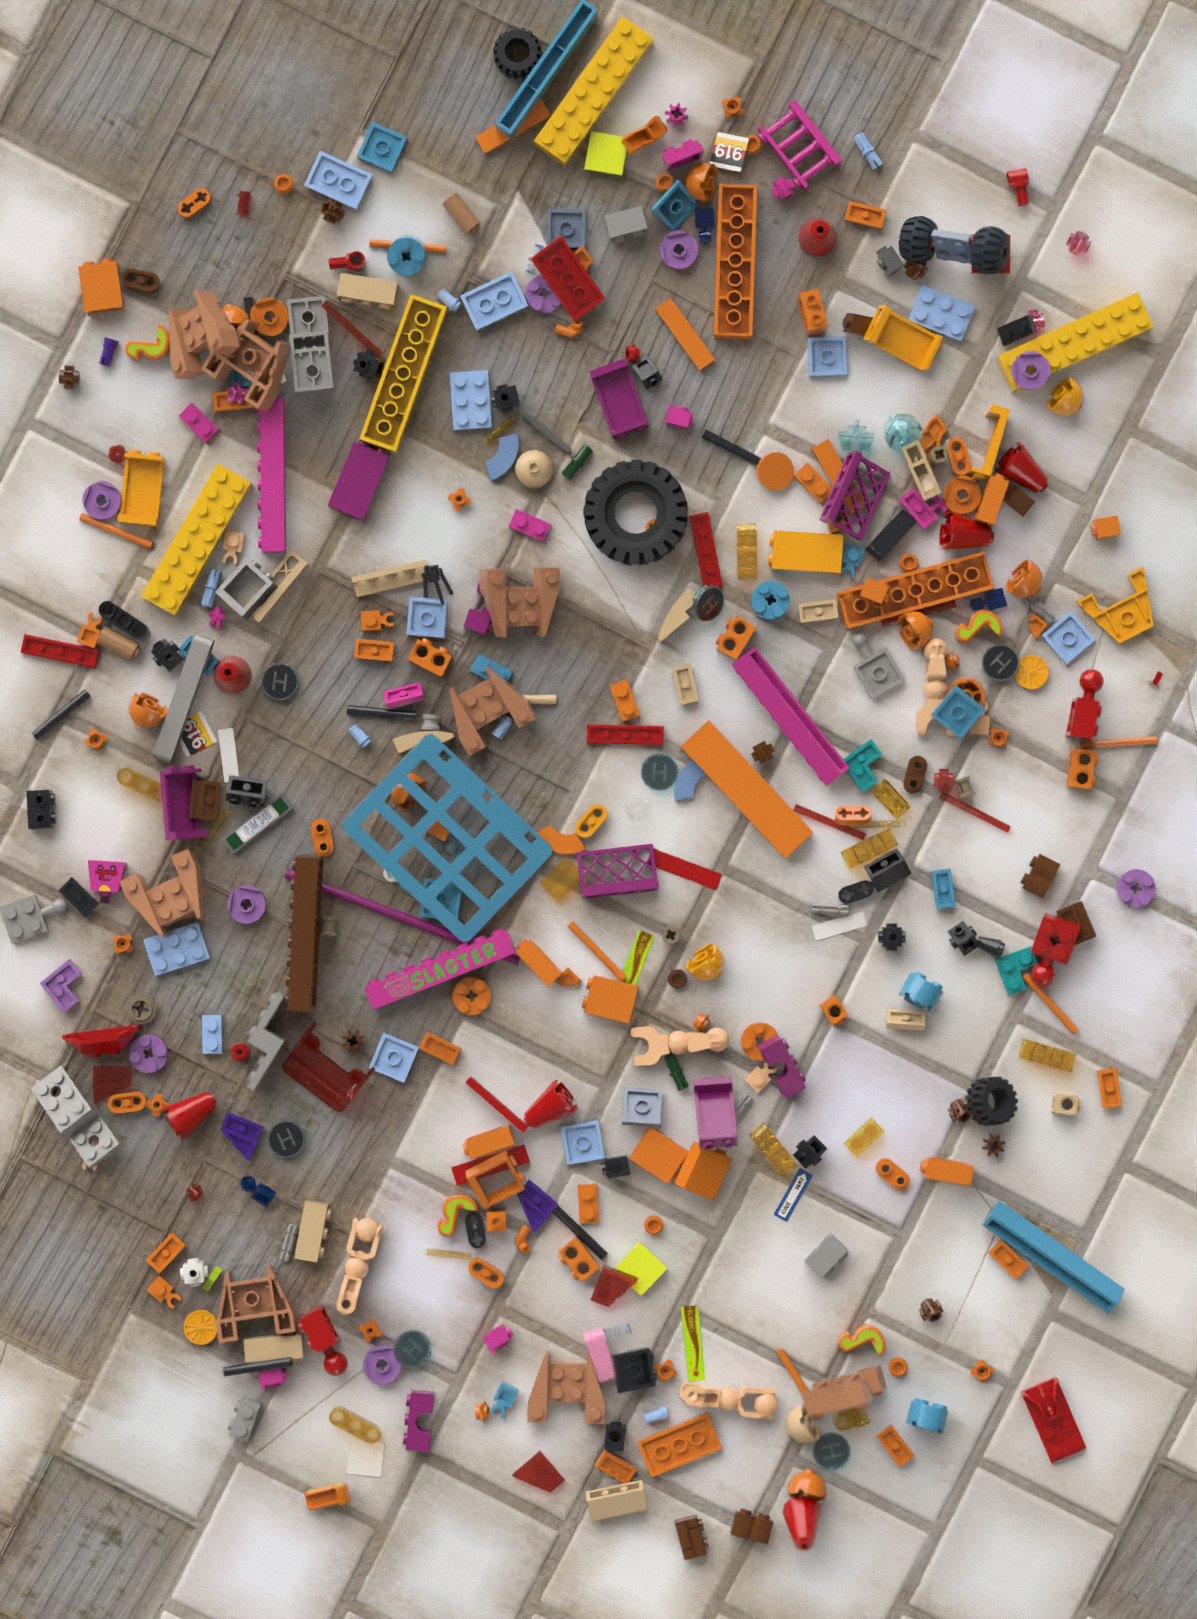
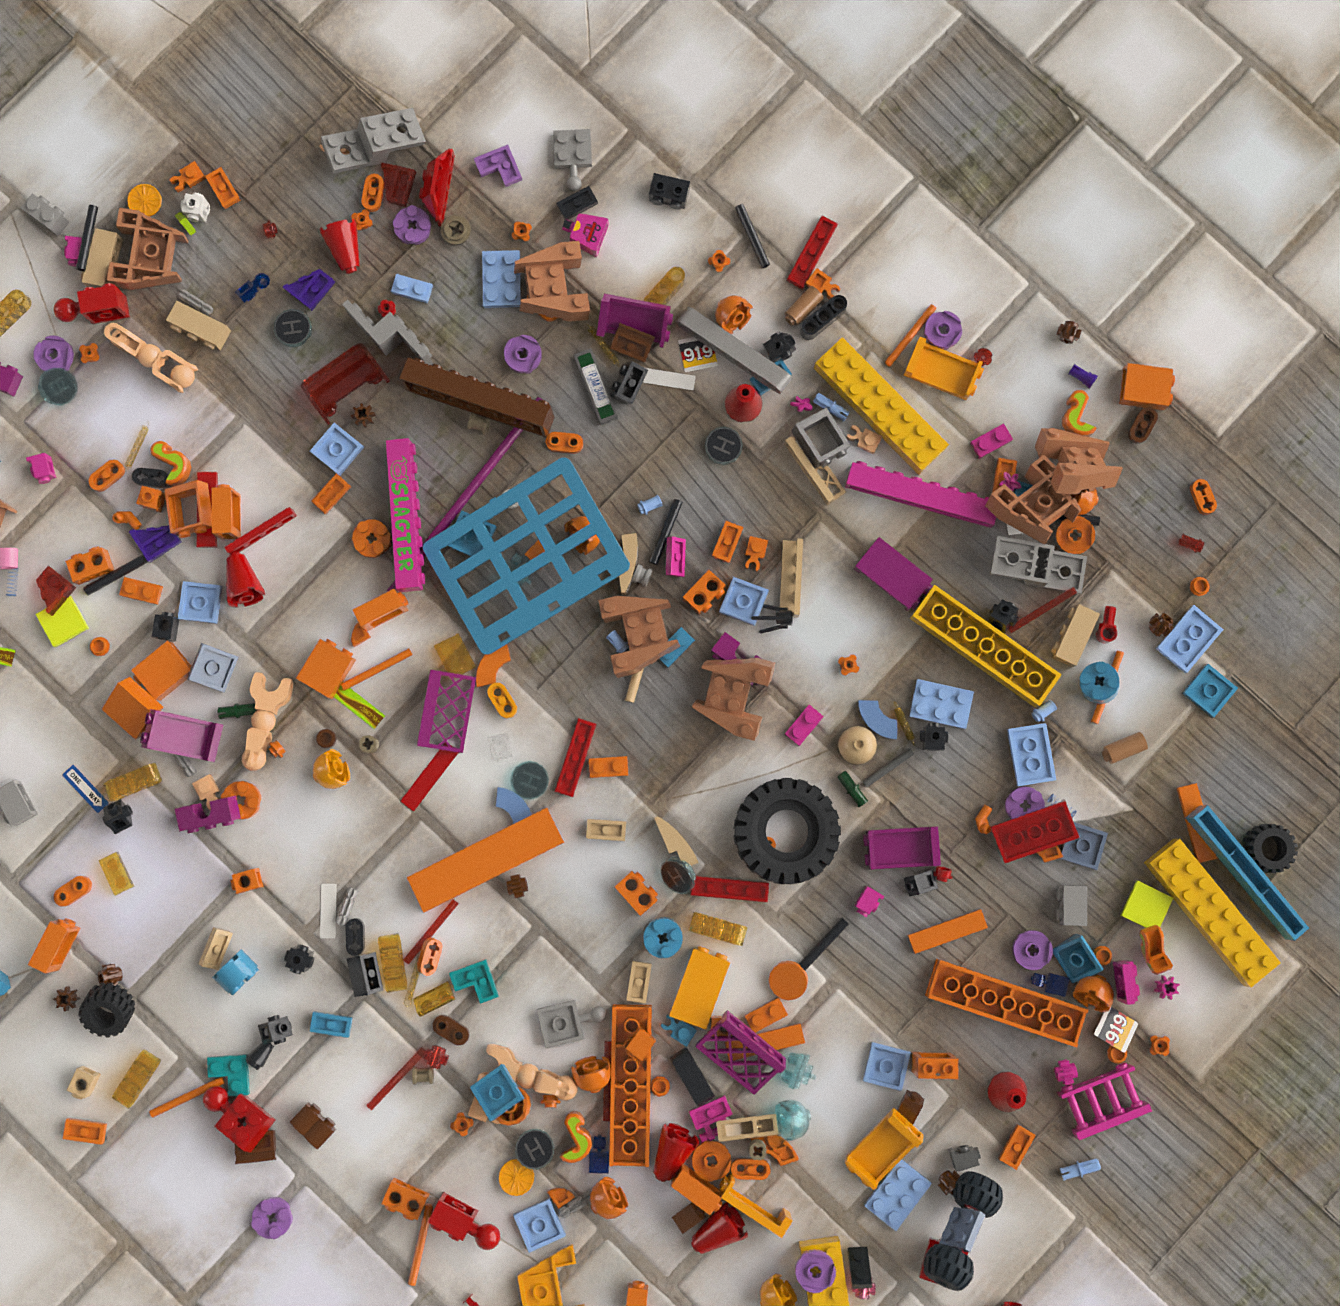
camera: 105 degrees right, 5 degrees down
(790, 716) = (543, 924): dark pink brick -> none

